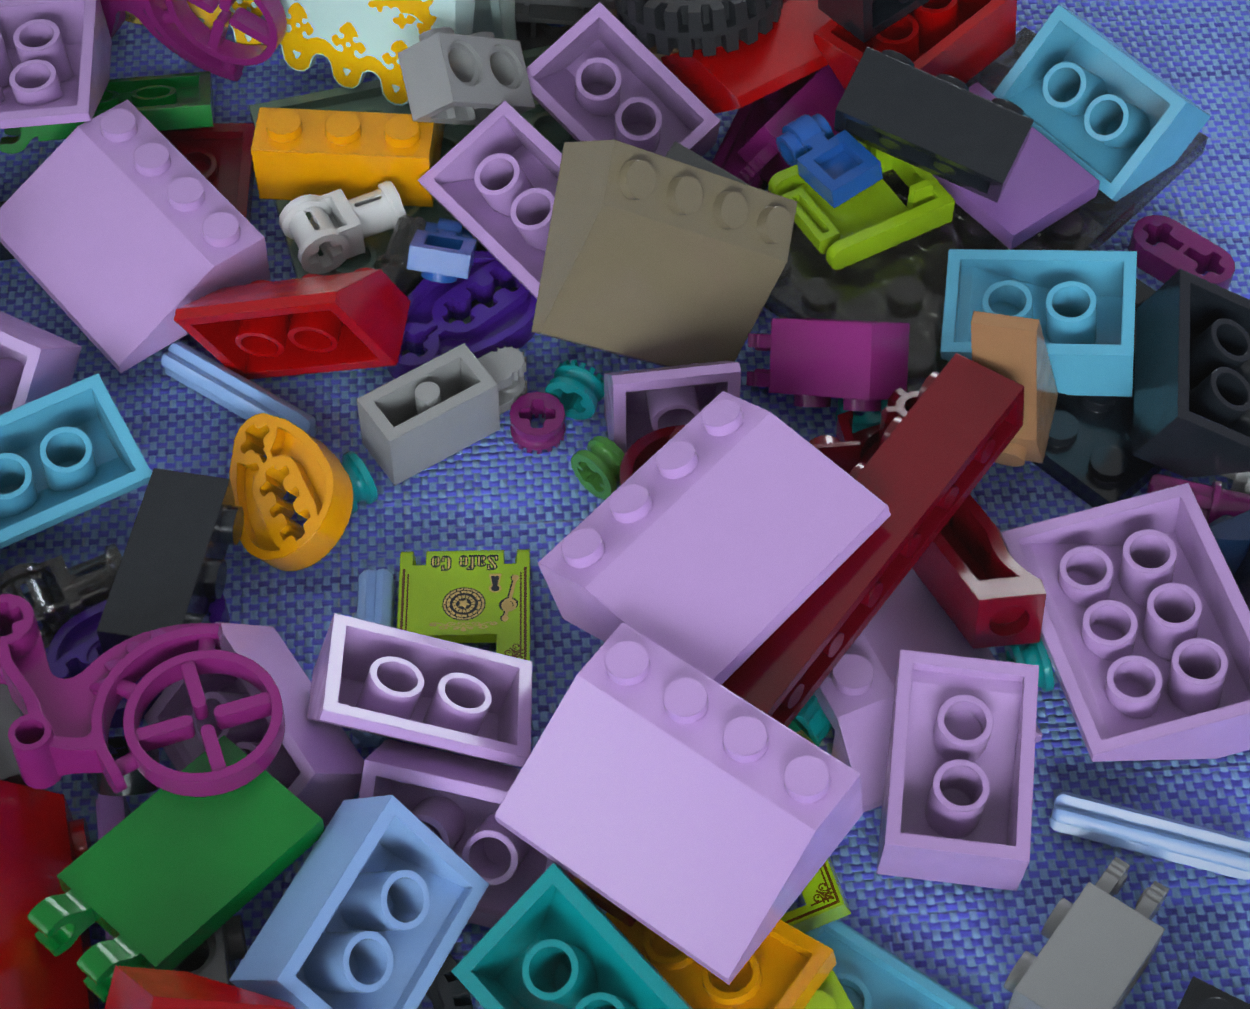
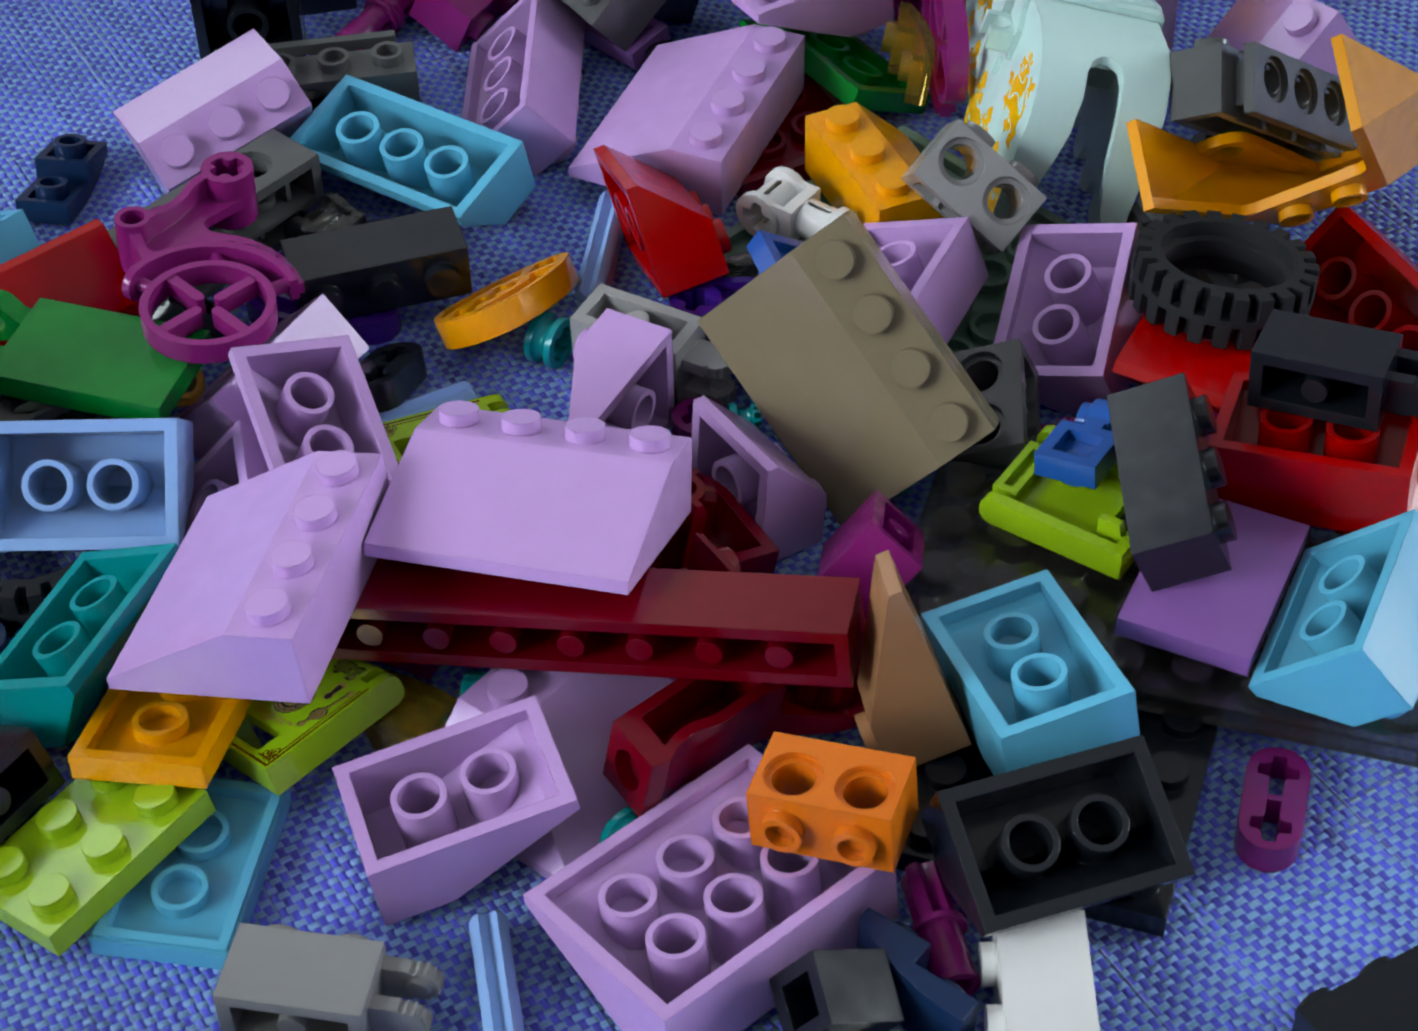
camera: 65 degrees right, 10 degrees down
(175, 44) = (911, 52): none -> clear yellow slope
(307, 639) = (394, 373): none -> black beam
(512, 461) = (623, 373): none -> lavender slope
(1130, 483) = (833, 801): none -> orange brick

